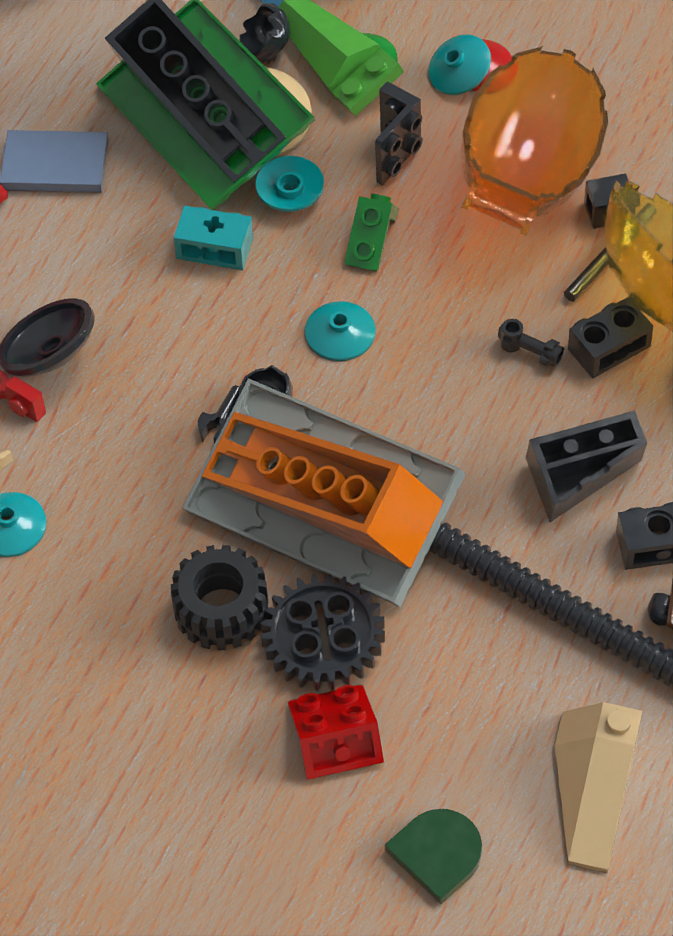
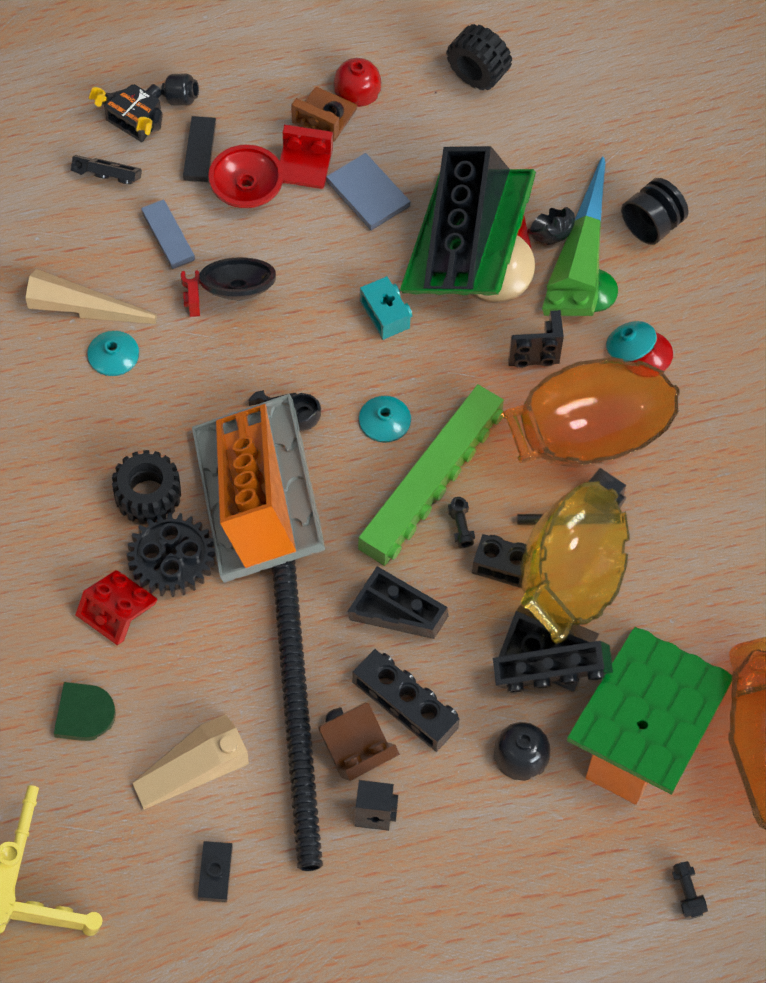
camera: 45 degrees right, 5 degrees up
(289, 183) = (458, 309): teal dish -> none
(370, 231) = (464, 380): green bracket -> none
(453, 333) = (431, 475): none -> bright green brick

